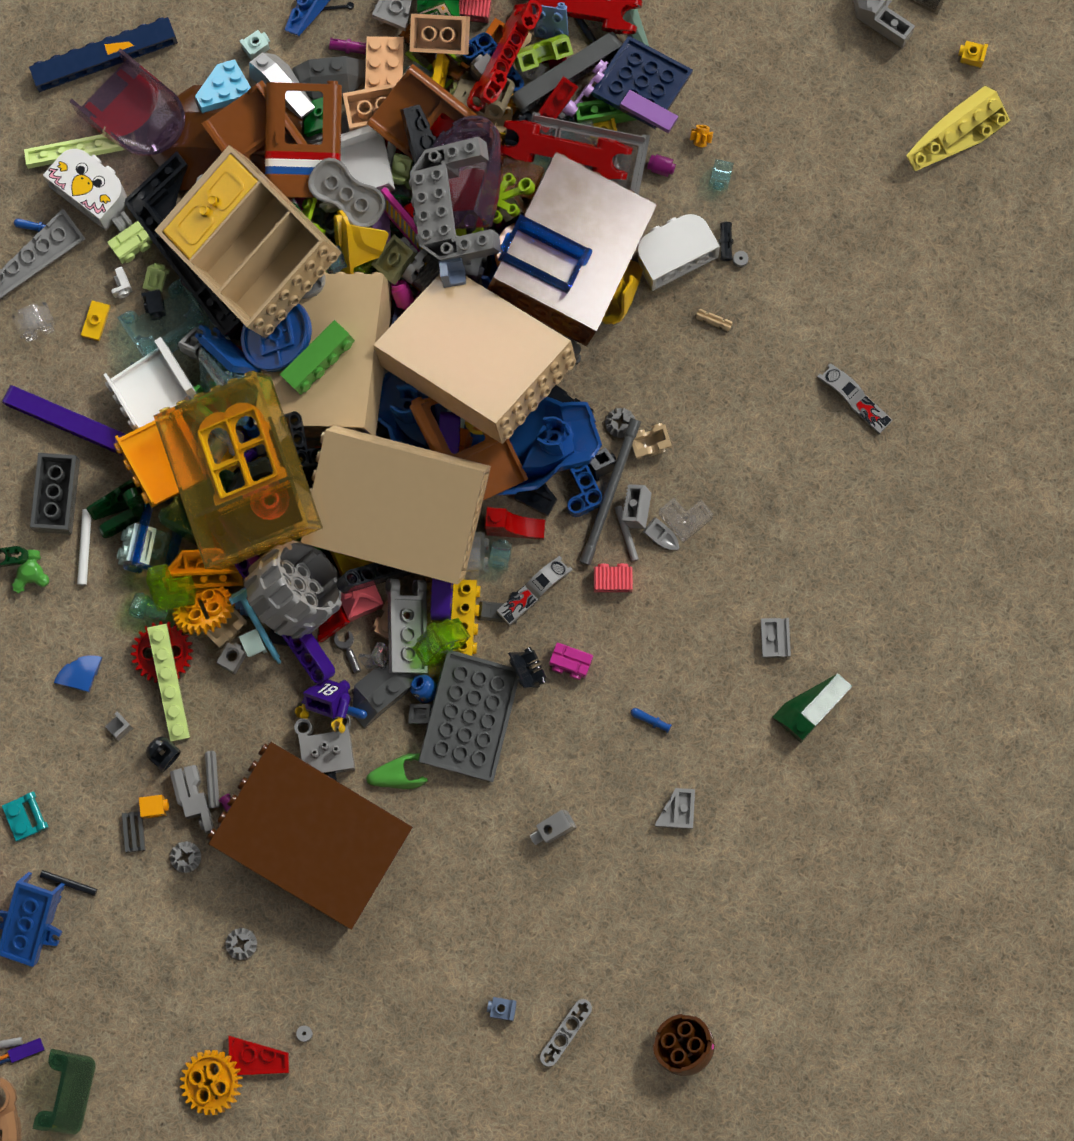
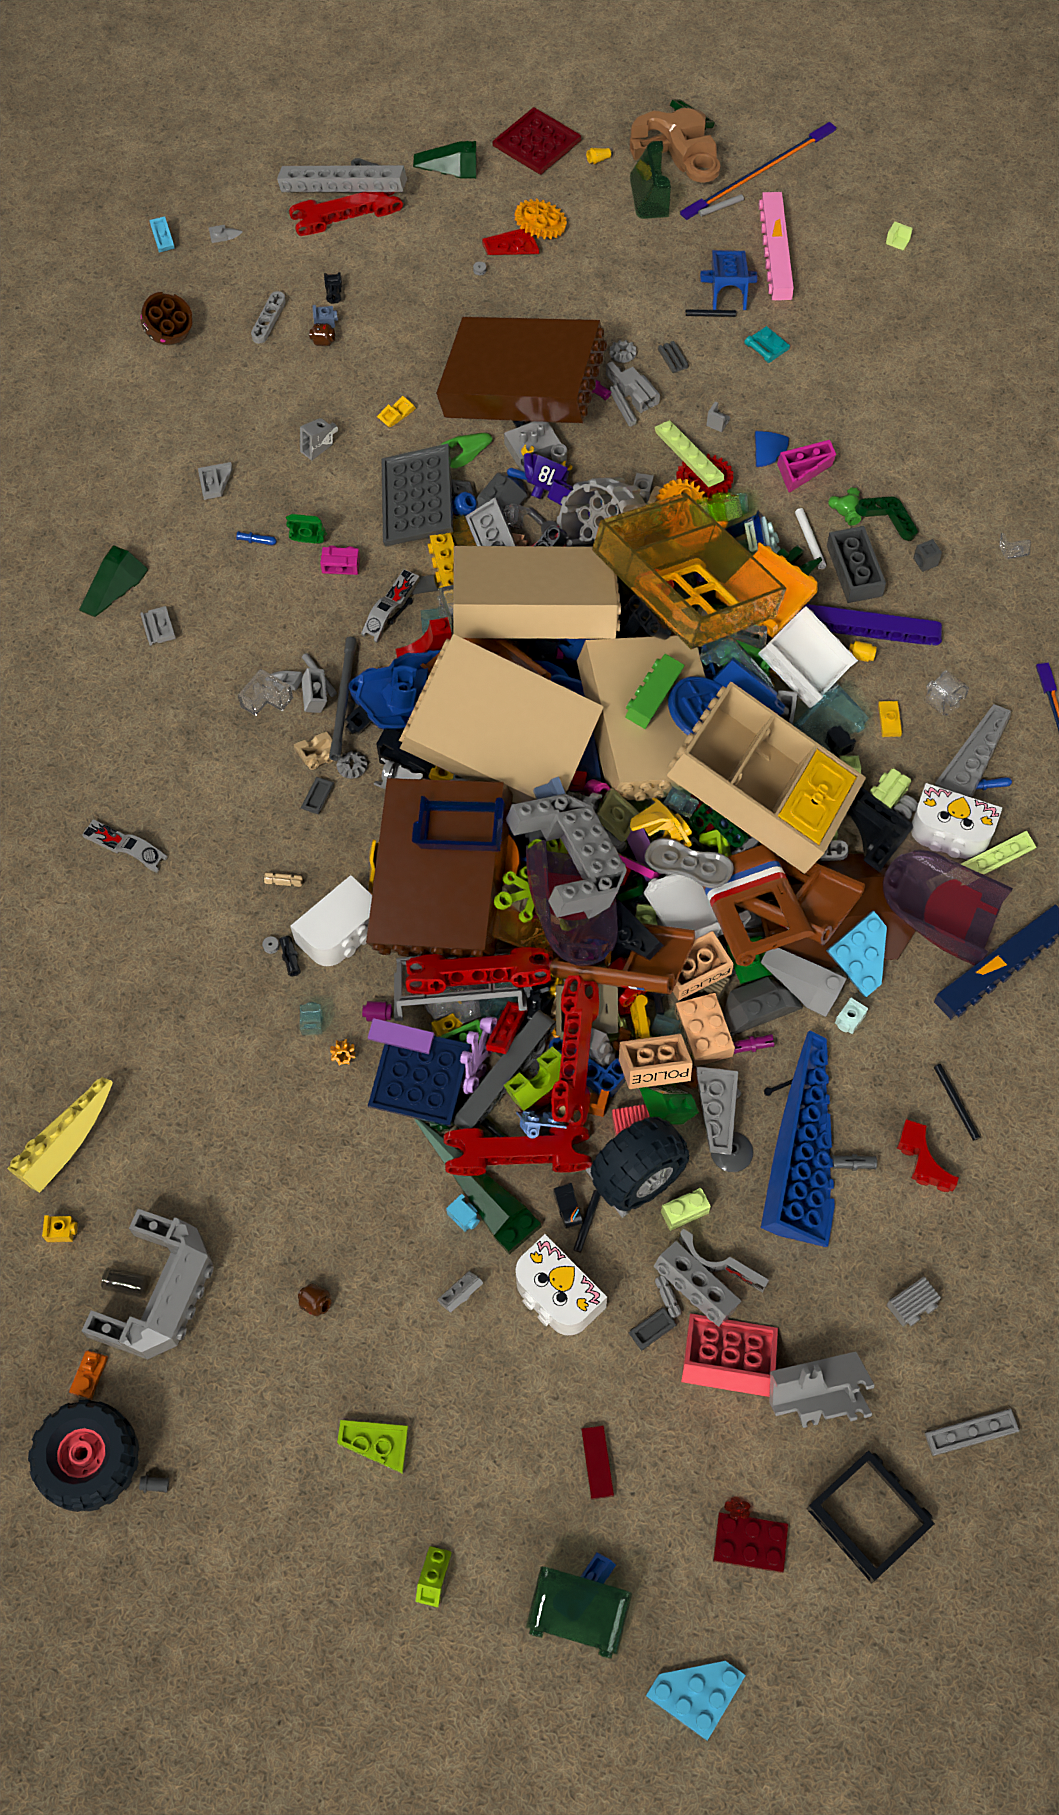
camera: 160 degrees right, 15 degrees down
(52, 633) = (805, 463): none -> dark pink wedge
(90, 397) = (863, 651): none -> yellow brick
(123, 284) = (879, 755): white bracket -> none
(153, 806) = (664, 372): light orange brick -> none
(163, 761) = (670, 408): black helmet -> none
(237, 952) = (557, 313): light grey gear -> none
(440, 639) = (457, 526): clear neon green brick -> none
(459, 846) = (394, 414): none -> yellow slope
(480, 1055) = (333, 286): none -> black connector
(511, 979) = (322, 334): none -> reddish brown head
(522, 664) = (377, 539): black hinge -> none
(584, 395) = (395, 770): none -> light grey hair
(595, 708) = (305, 528): none -> green slope
(613, 578) = (320, 631): coral brick -> none
(661, 397) = (317, 795): none -> dark grey tile

